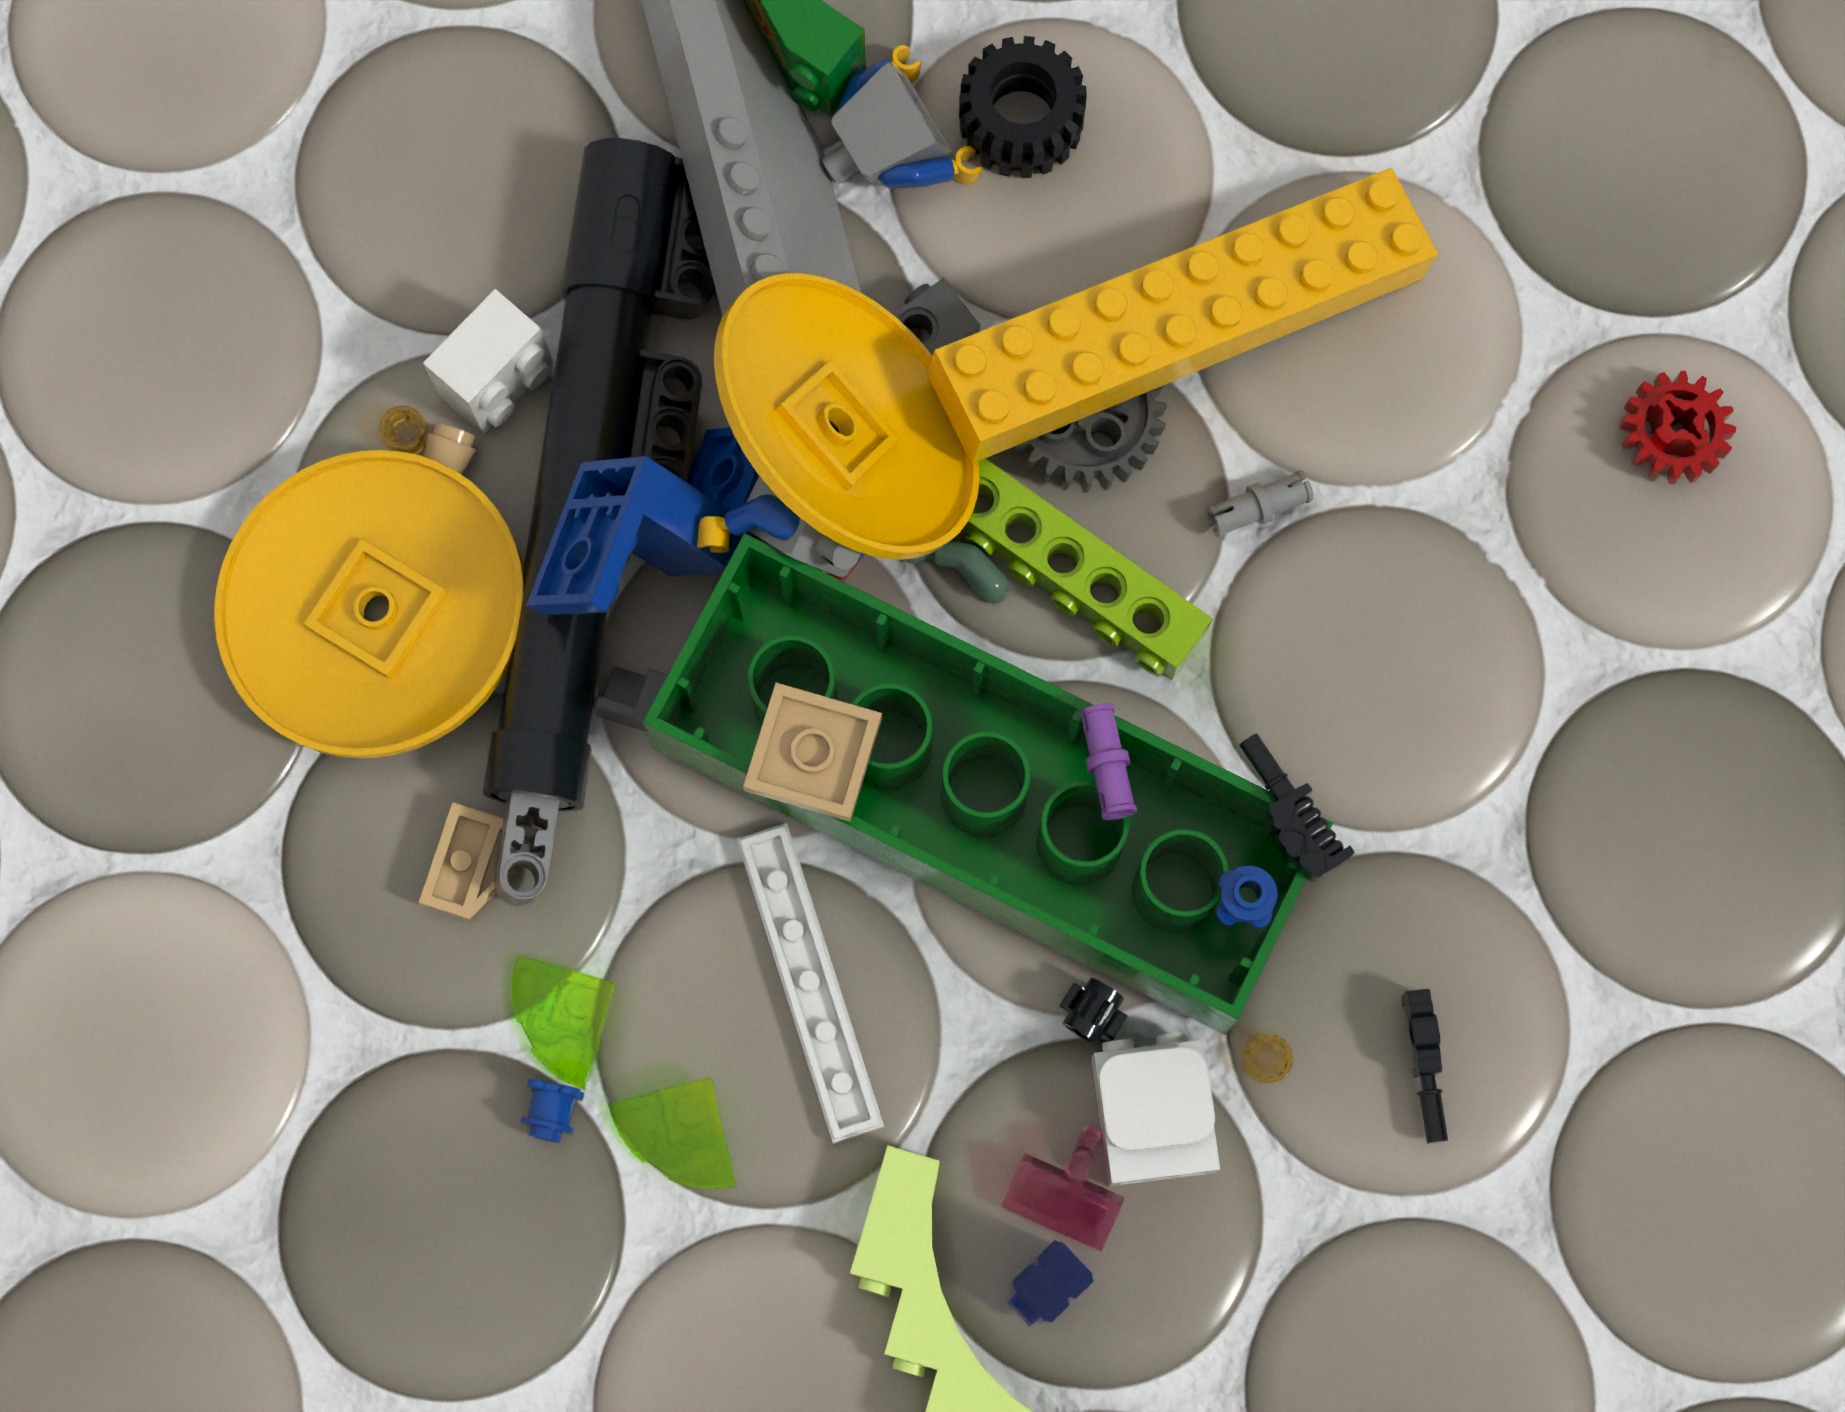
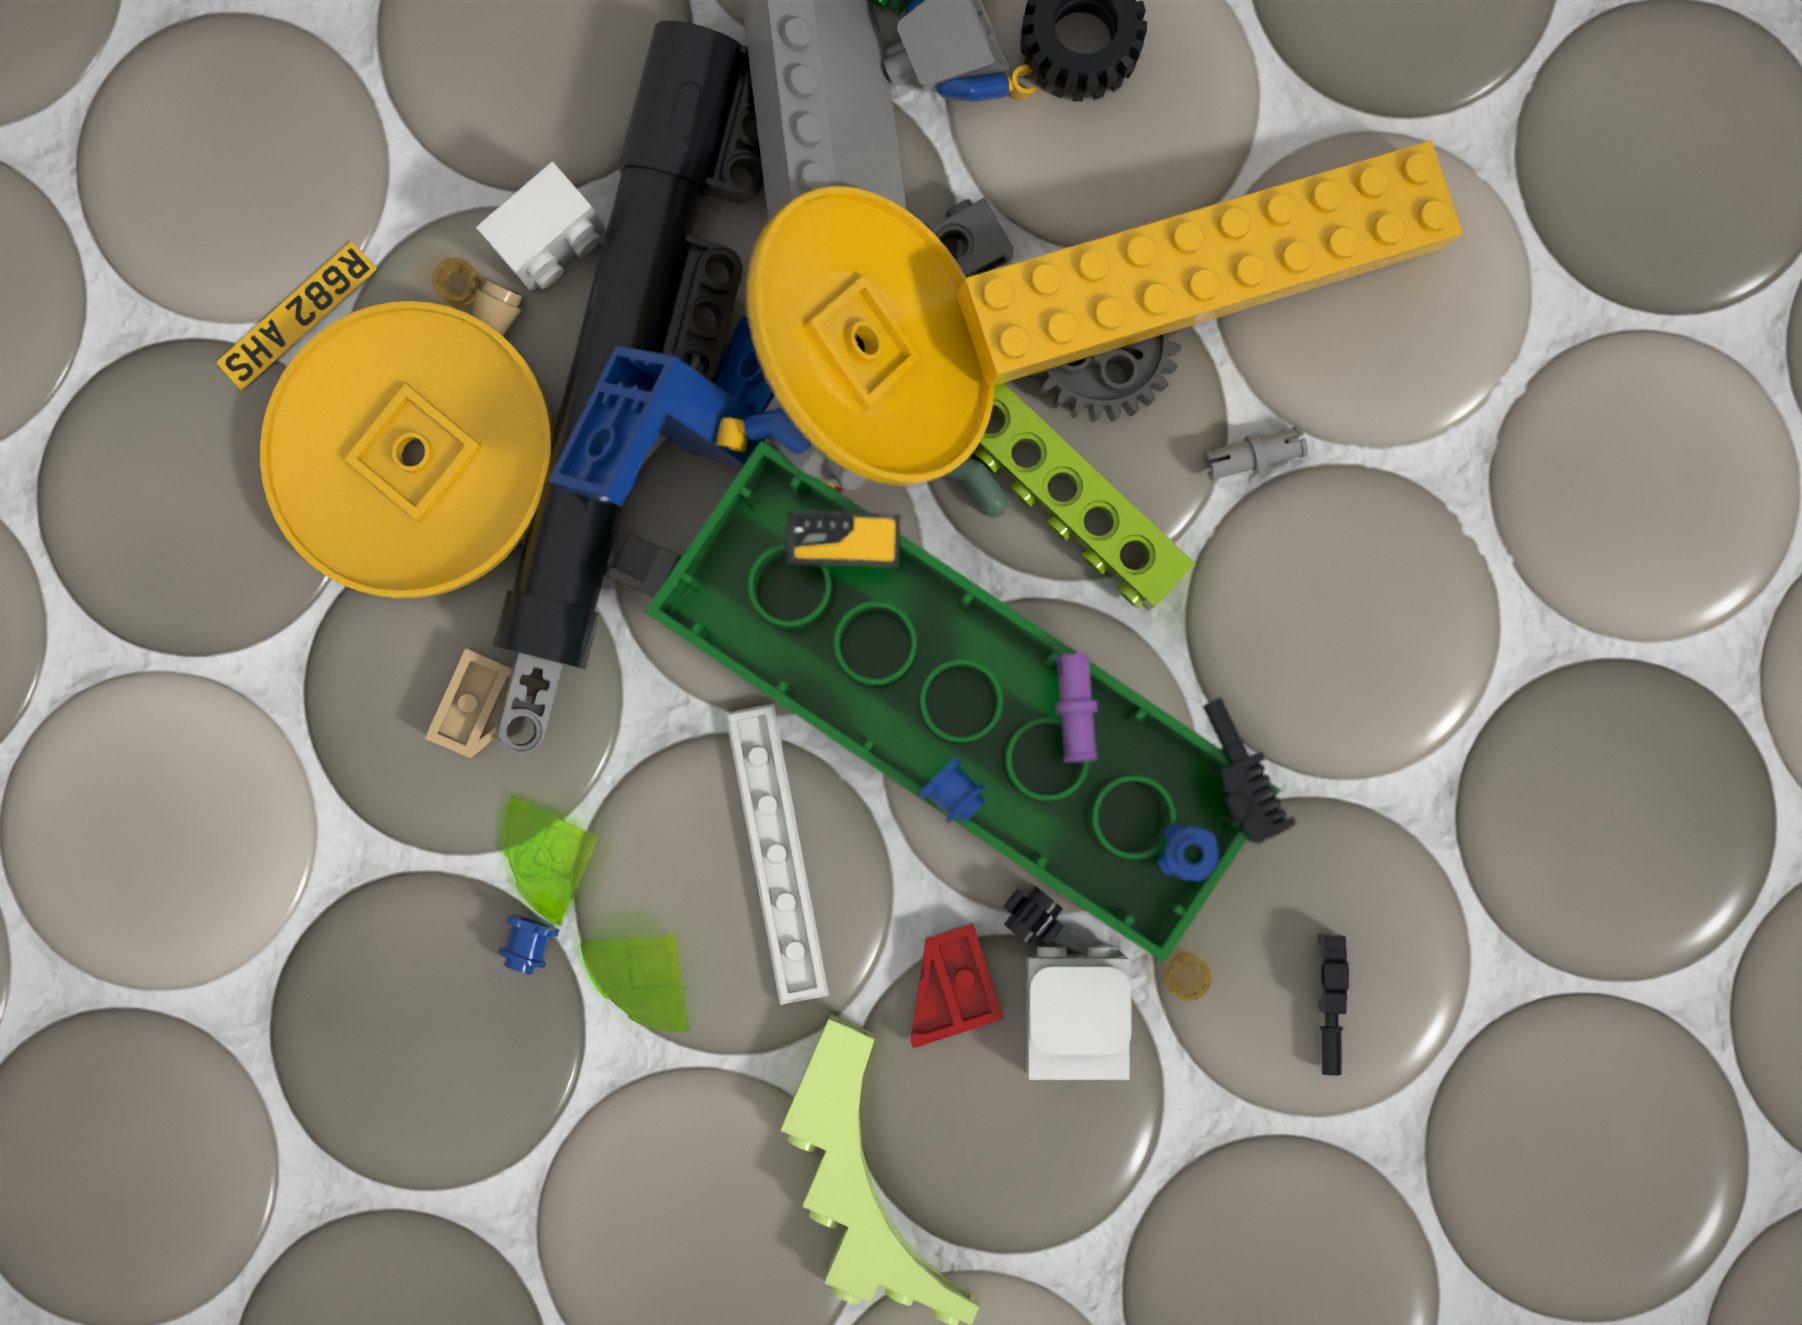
camera: 10 degrees right, 10 degrees up
(237, 487) = (296, 315): none -> yellow sticker
(812, 752) = (800, 664): tan plate -> none
(841, 618) = (843, 539): none -> slope
(990, 863) = (954, 792): none -> blue brick
(1017, 1100) = (953, 987): none -> red wing
(1047, 1286) = (959, 1165): clear blue brick -> none
(1064, 1197) = (984, 1082): clear pink plate -> none
(1667, 411) = (1676, 442): red gear -> none

